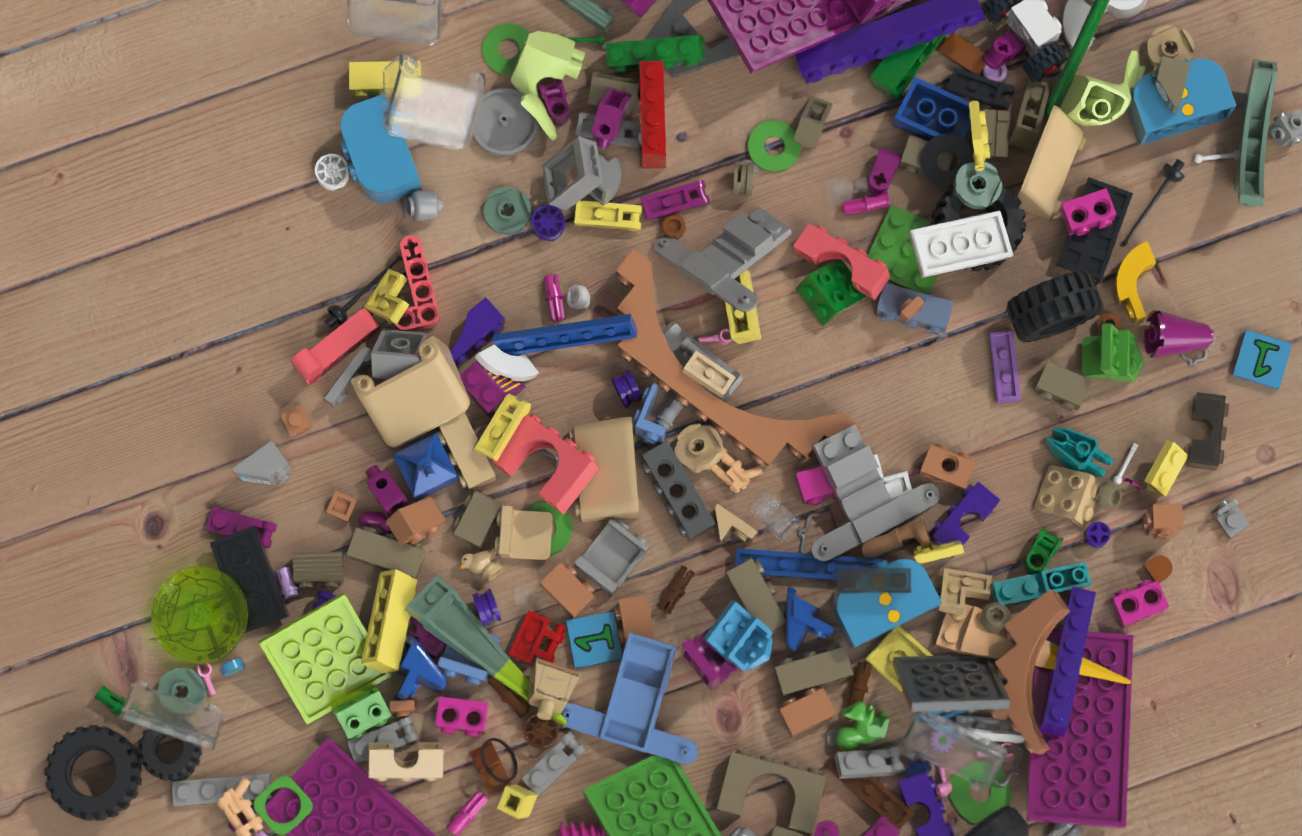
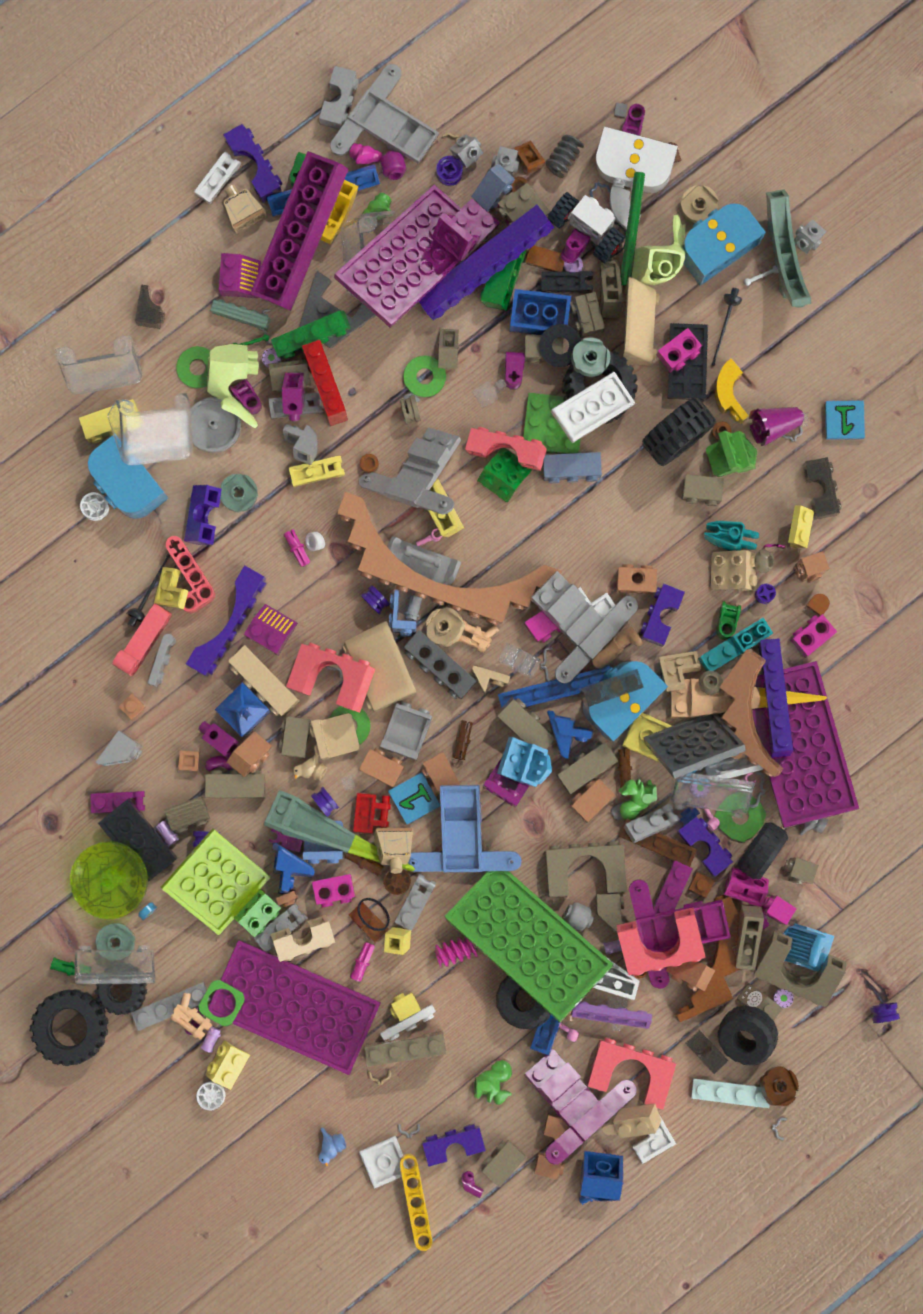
camera: 20 degrees left, 5 degrees up
(205, 673) = (128, 922): bright pink hand -> none
(389, 621) = (254, 837): light yellow brick -> none
(395, 352) = (191, 630): light grey slope -> none
(416, 397) = (218, 660): tan windscreen -> none
(424, 205) = (173, 509): light grey head -> none
(445, 237) = (202, 501): none -> dark purple arch
(502, 427) = (290, 661): light yellow plate -> none
(514, 367) = (272, 612): white tile -> none
(548, 222) = (273, 492): dark purple wheel -> none
(566, 335) = (315, 575): blue plate -> none
(586, 157) = (285, 432): light grey window -> none
(598, 63) = (269, 356): none -> lavender tile
(674, 200) = (363, 443): magenta plate -> none
(708, 374) = (434, 569): tan hinge -> none
(866, 204) = (509, 398): dark pink axle -> none
(911, 308) = (570, 468): nougat plate -> none
(932, 552) = (648, 649): light yellow tile -> none
(979, 135) = (580, 318): light yellow plate -> none
(1004, 366) = (654, 488): medium lavender tile -> none
(1118, 479) = (767, 547): white hinge -> none
(1171, 81) = (711, 229): dark tan slope -> none
(1230, 518) = (860, 548): light grey bracket -> none

